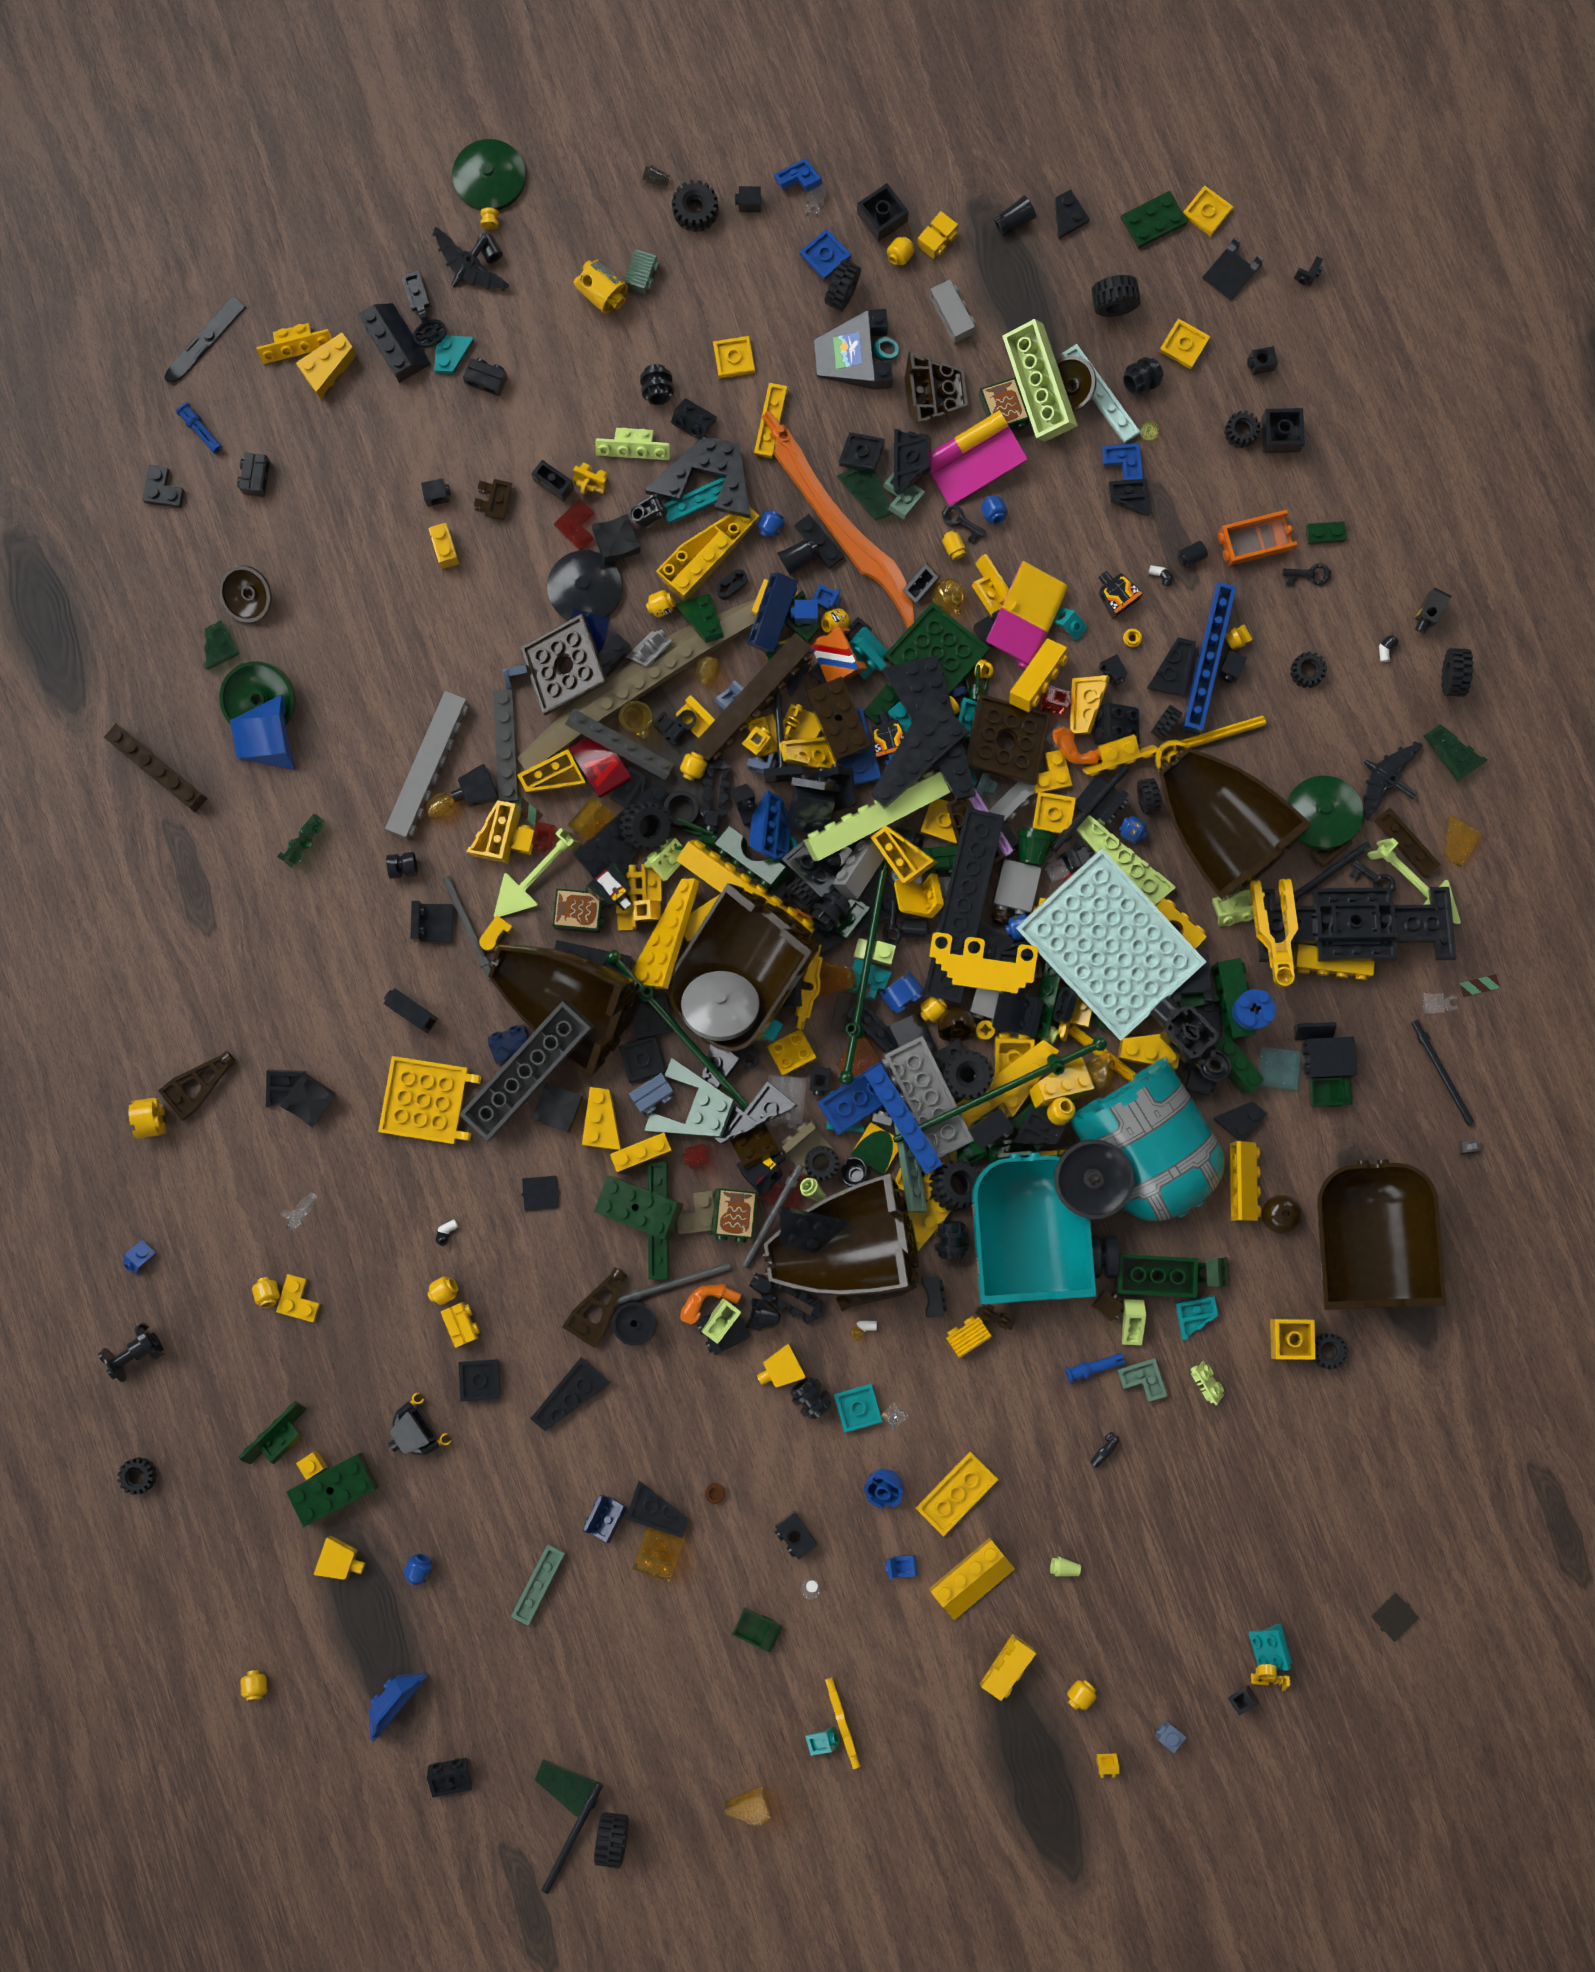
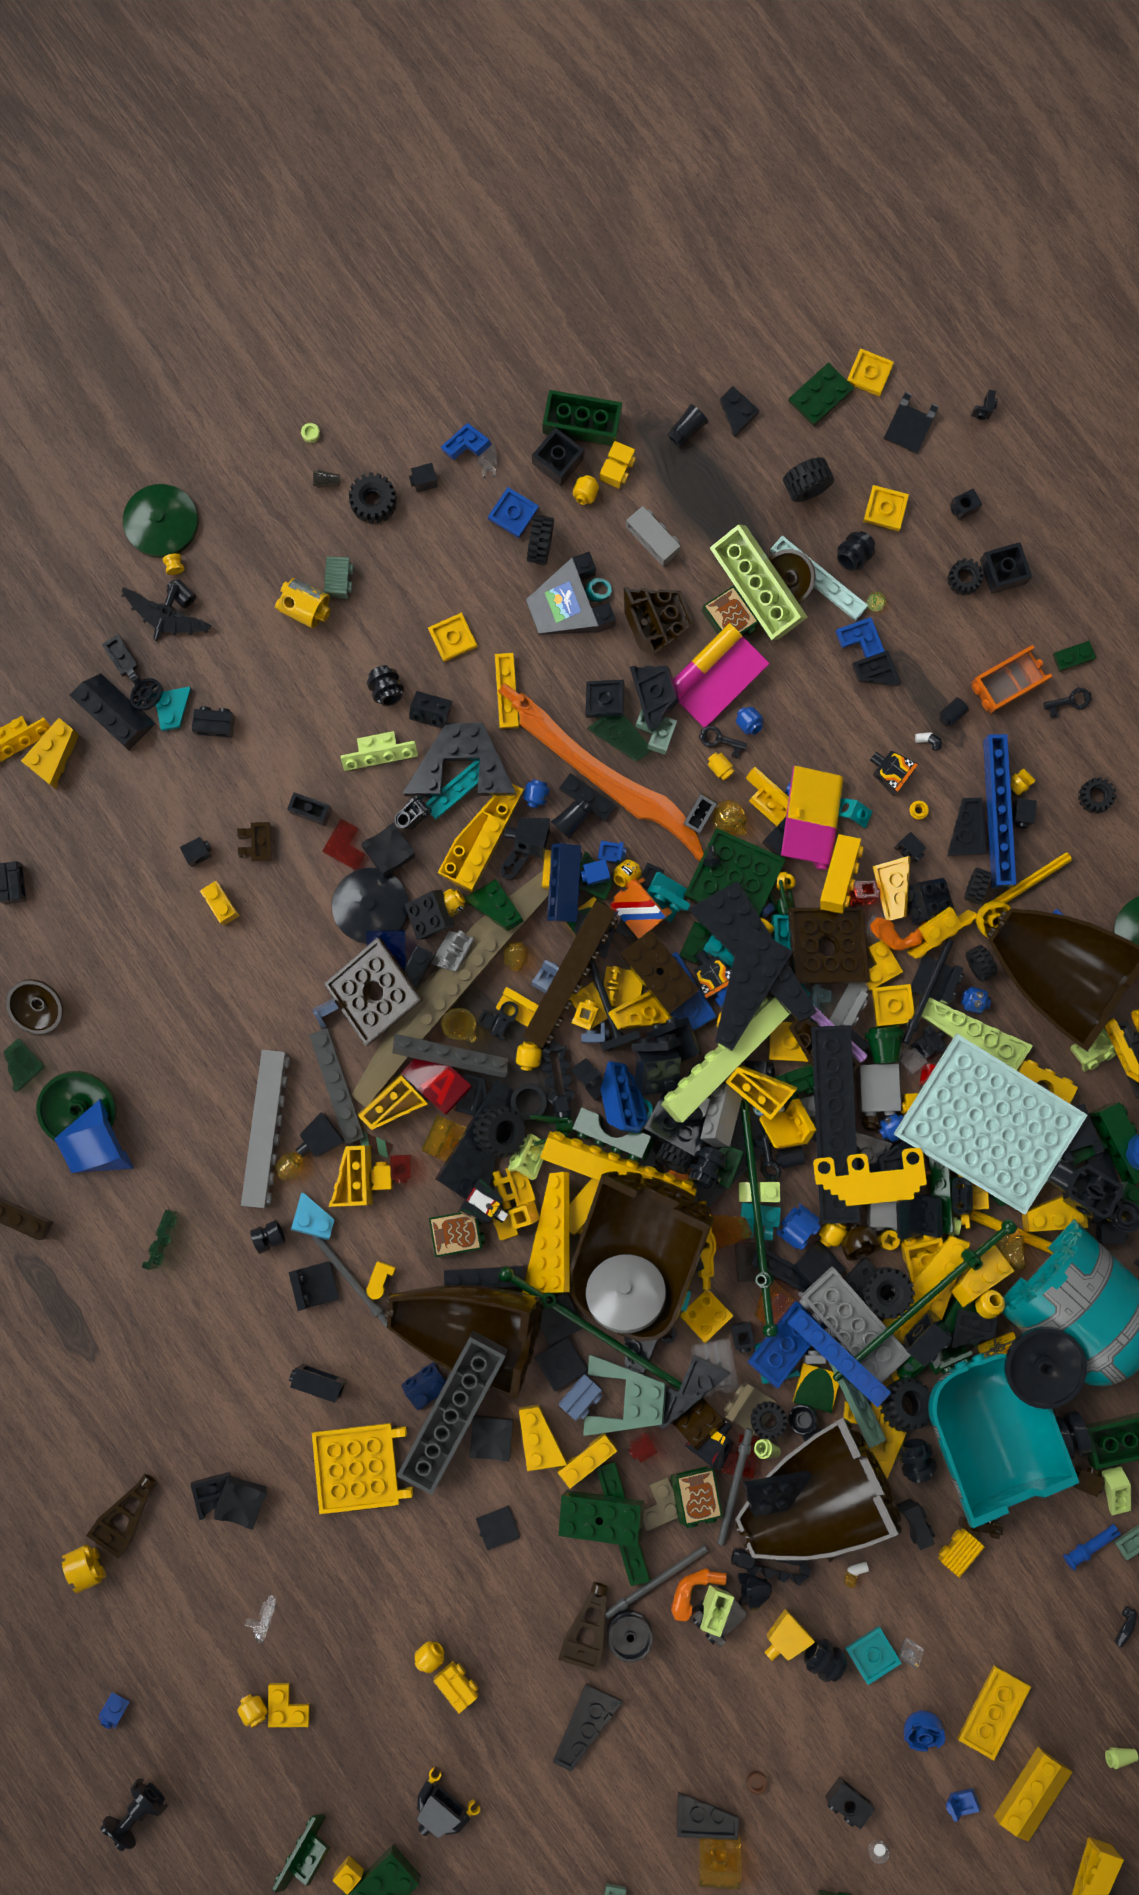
camera: 20 degrees left, 0 degrees up
(444, 1231) = (413, 1601): arm -> none
(447, 861) = (312, 1219): none -> medium azure wing
(479, 1380) = (491, 1737): black plate -> none
(514, 897) = (386, 1235): yellowish green piece -> none
(589, 481) = (345, 799): yellow hips -> none
(604, 1518) = (656, 1842): dark blue bracket -> none
(636, 608) = (429, 914): none -> black brick
(654, 129) = (310, 433): none -> yellowish green tile
(754, 561) = (530, 835): none -> black torso
(917, 181) = (582, 417): none -> dark green brick
(919, 629) = (711, 859): none -> black rock

